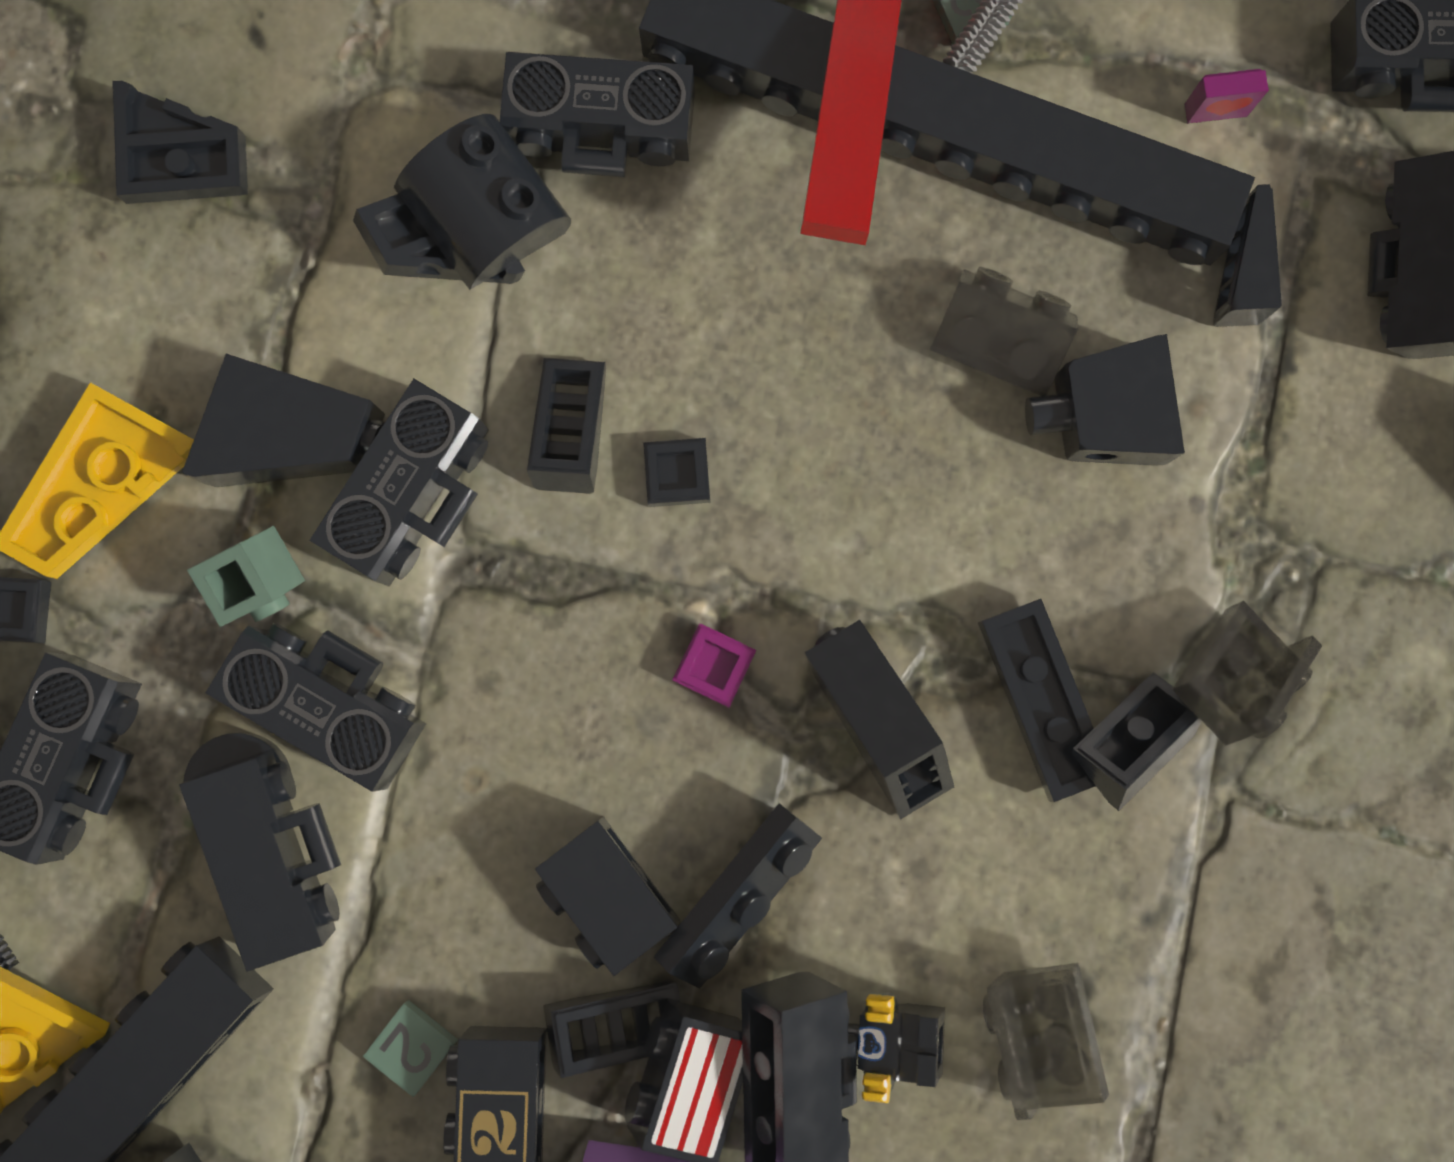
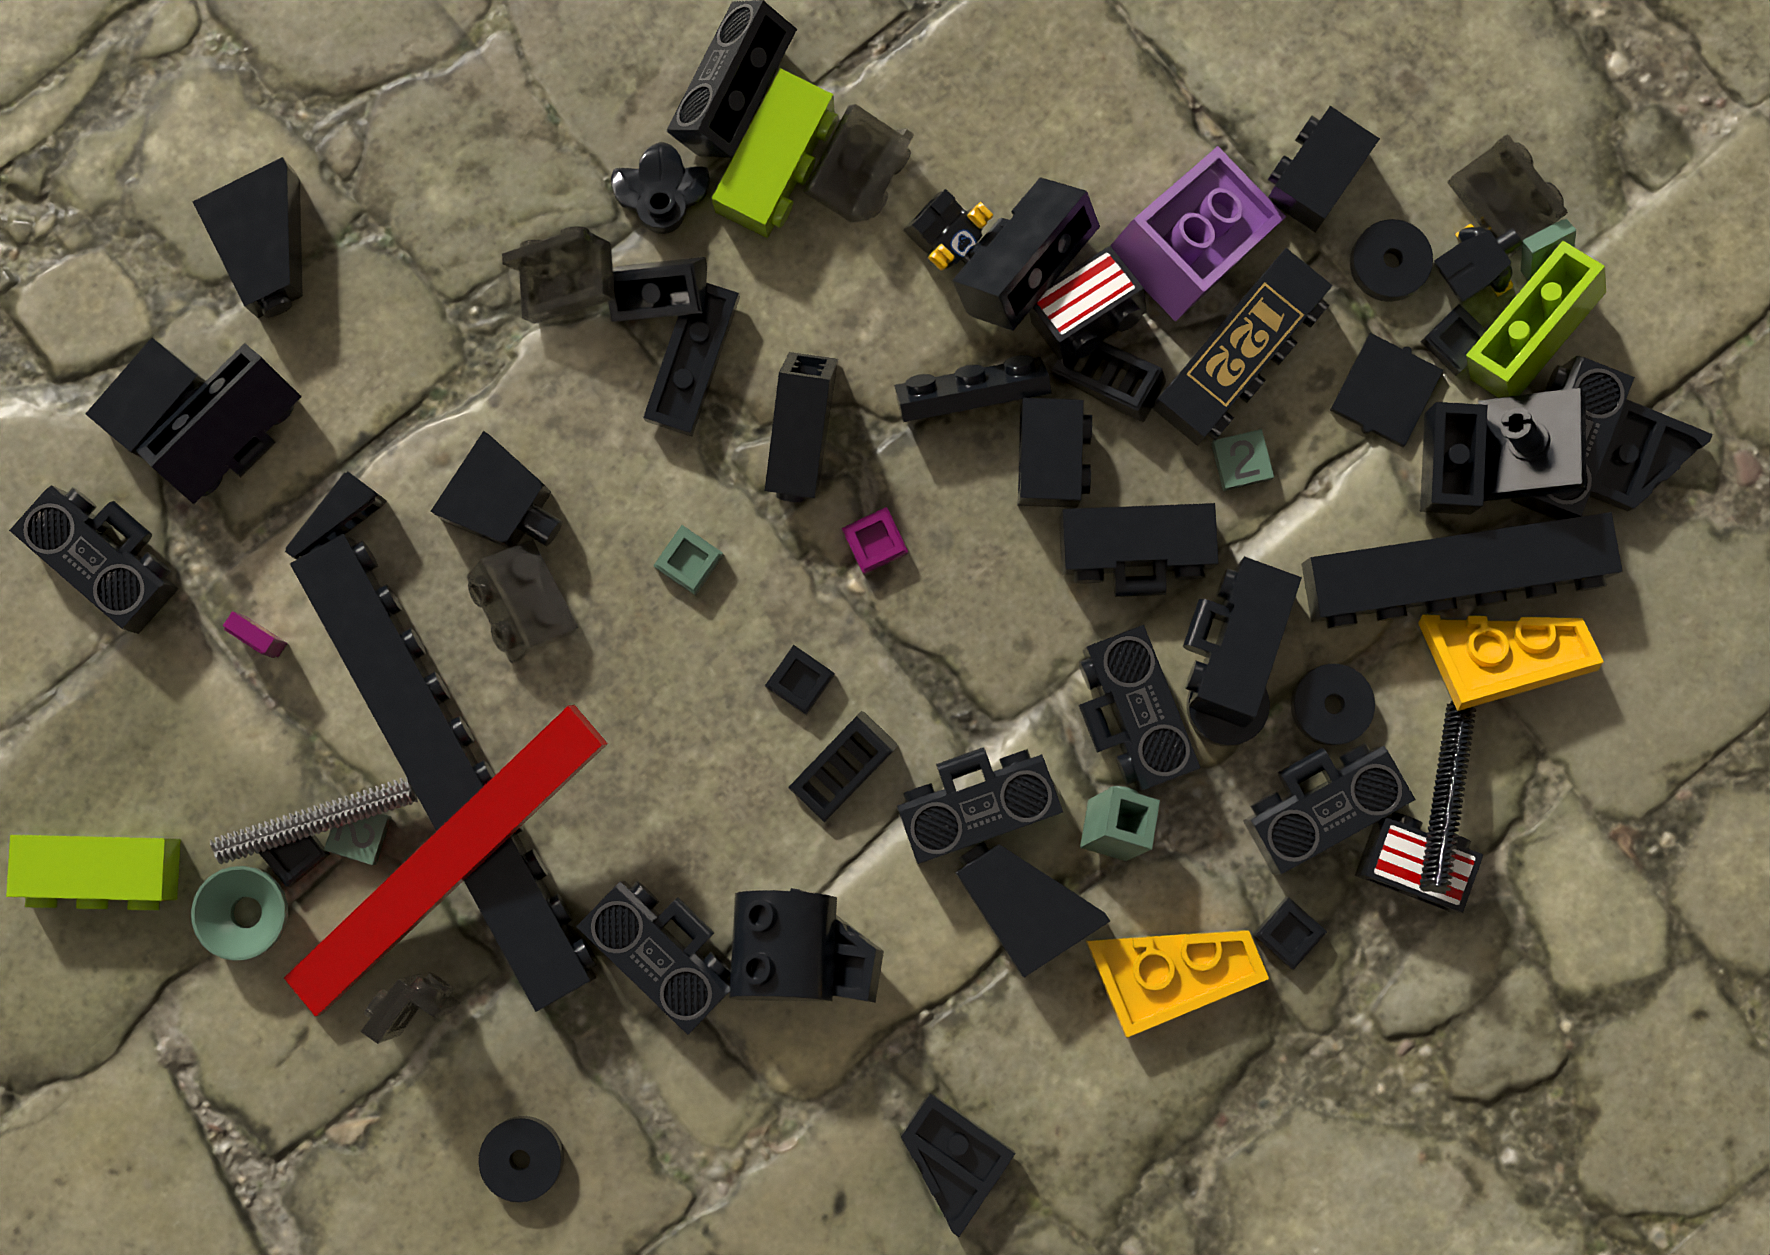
camera: 145 degrees left, 0 degrees up
(104, 876) = (1355, 698): none -> black piece
(426, 899) = (1158, 536): none -> black piece
(879, 500) = (688, 560): none -> sand green tile
(1140, 981) = (775, 154): none -> lime brick
(1229, 853) = (658, 182): none -> black plate
(1252, 1024) = (731, 79): none -> black piece

